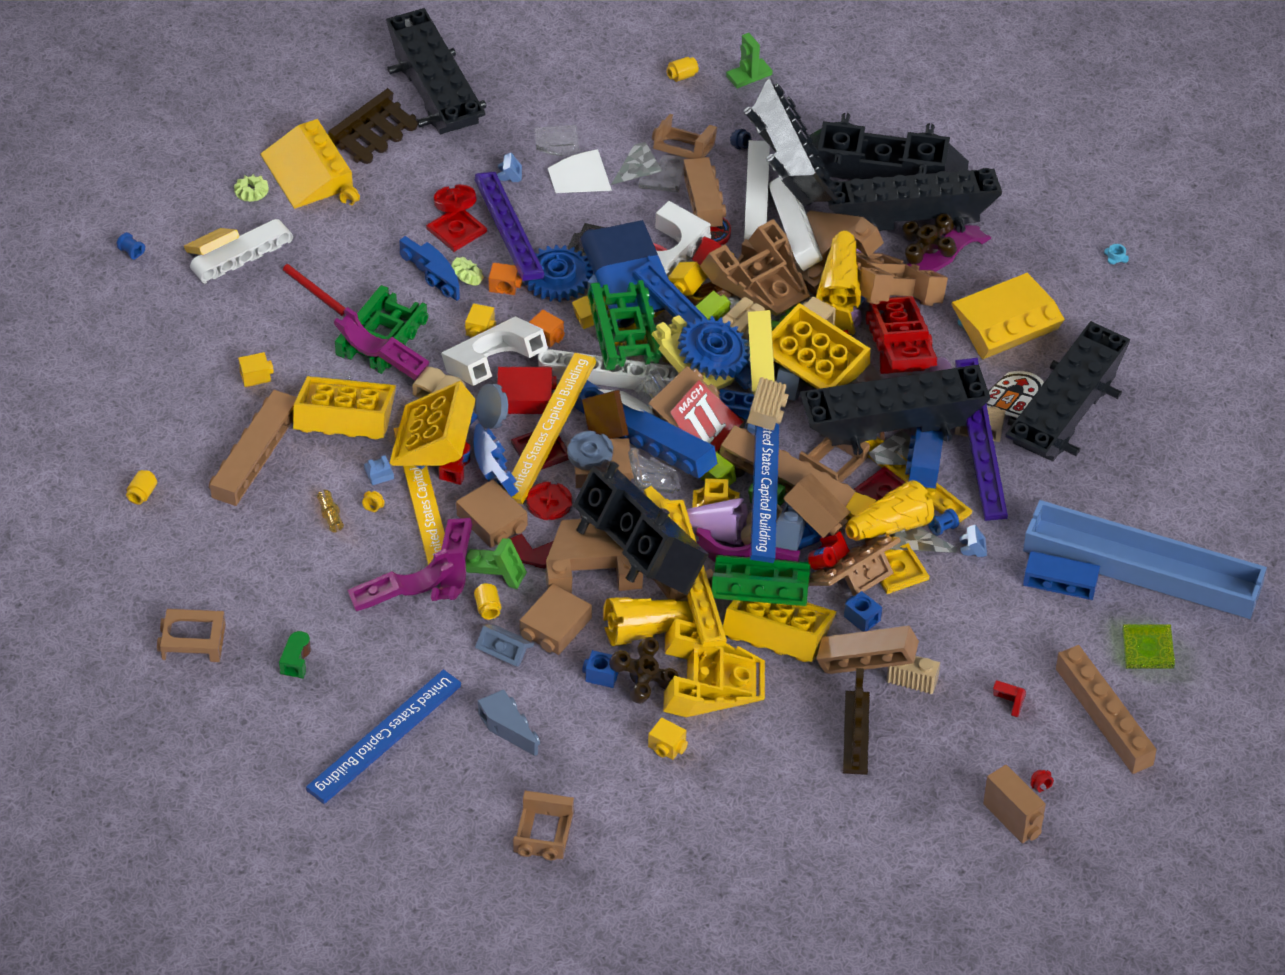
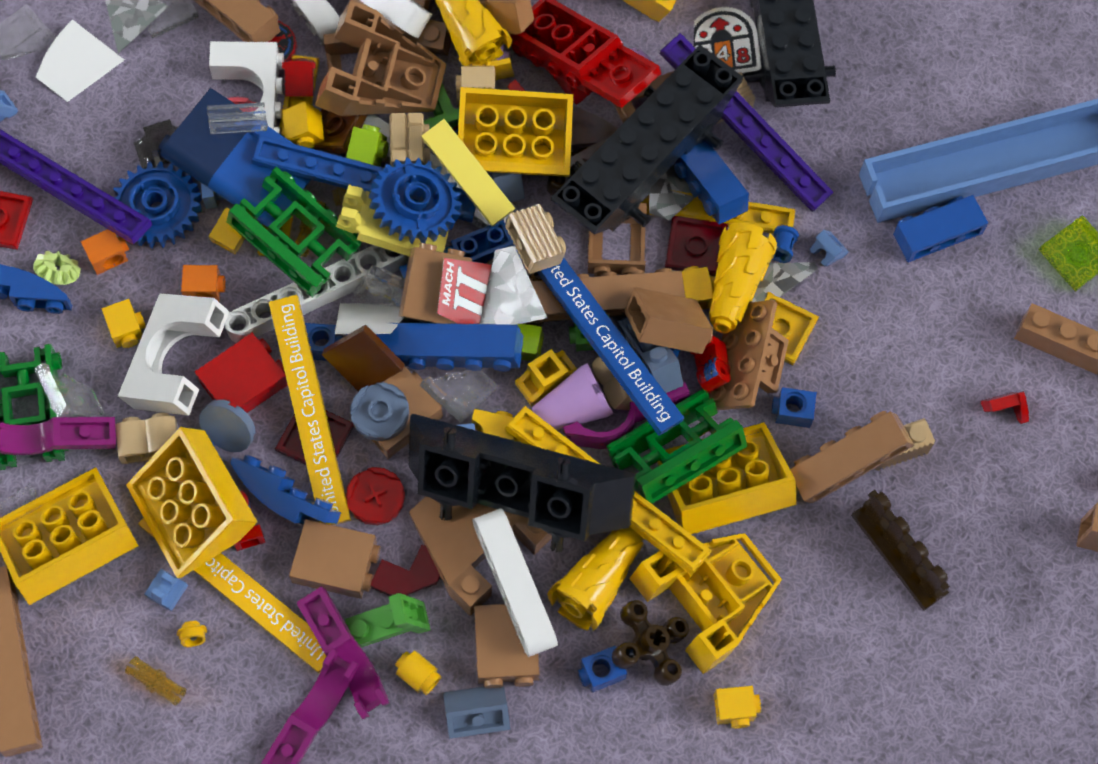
camera: 40 degrees left, 20 degrees up
(412, 333) = (68, 396): none -> clear wing
(586, 580) = (515, 582): none -> white beam
(643, 243) = (236, 114): none -> clear tile
(728, 431) = (510, 293): none -> sticker

